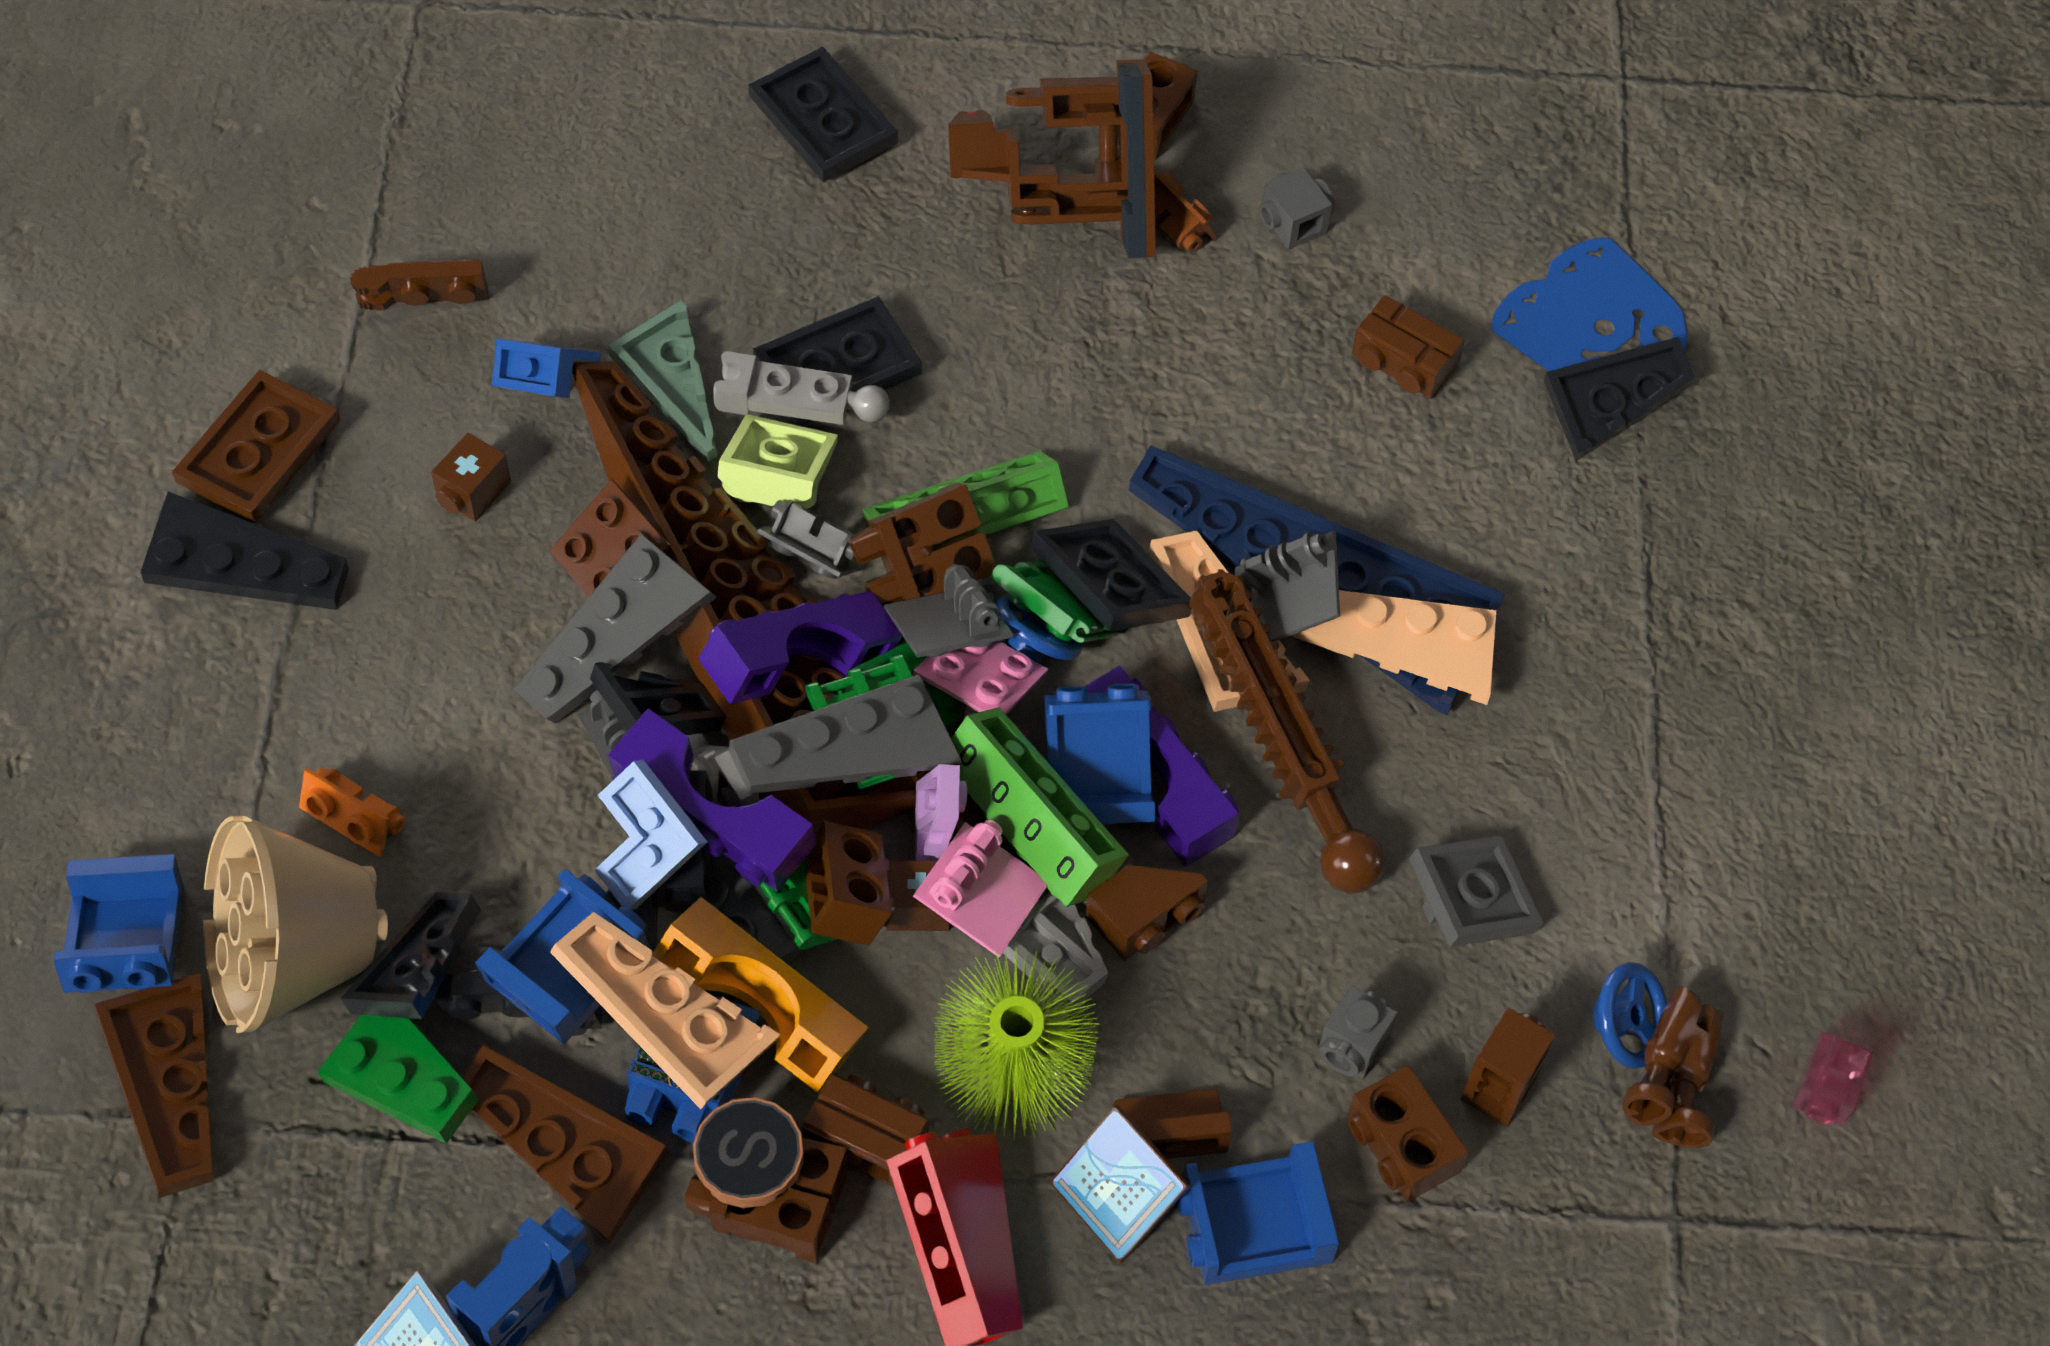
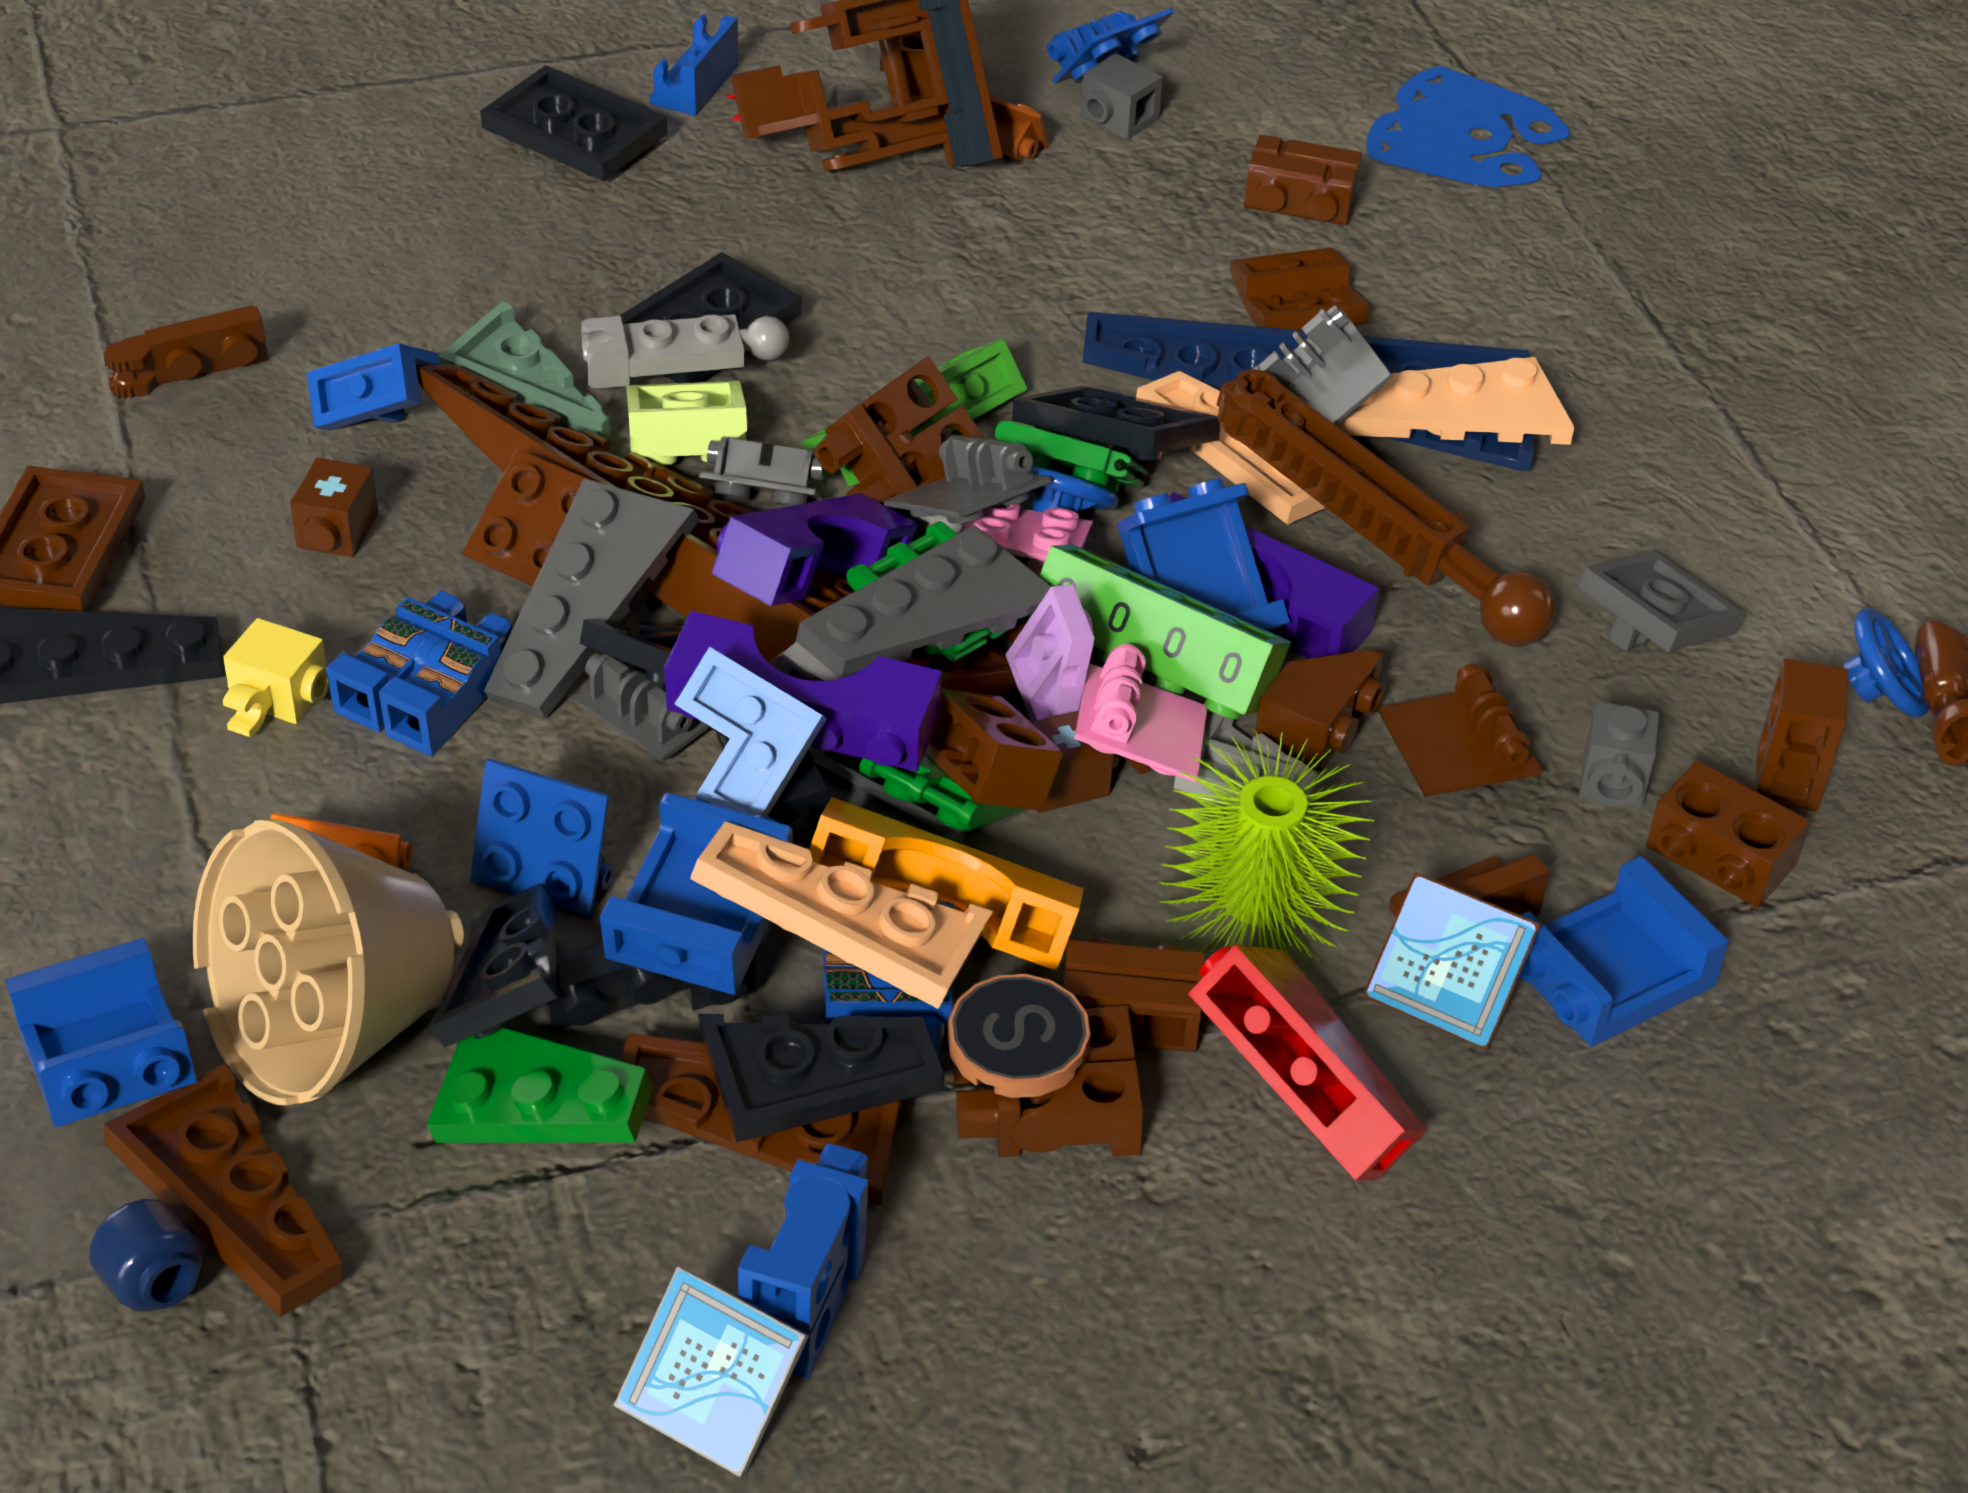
camera: 20 degrees left, 15 degrees down
(85, 1122) = (146, 1255): none -> dark blue head
(363, 628) = (274, 675): none -> light yellow brick
(474, 657) = (420, 667): none -> blue hips
(488, 854) = (543, 834): none -> blue hinge
(589, 1127) = (806, 1073): none -> black wing
(951, 80) = (699, 70): none -> blue hinge
(1245, 969) = (1461, 737): none -> reddish brown hinge
(1319, 142) = (1091, 44): none -> blue hinge
(1347, 466) = (1294, 286): none -> reddish brown slope
(1615, 391) = (1528, 172): black wing -> none

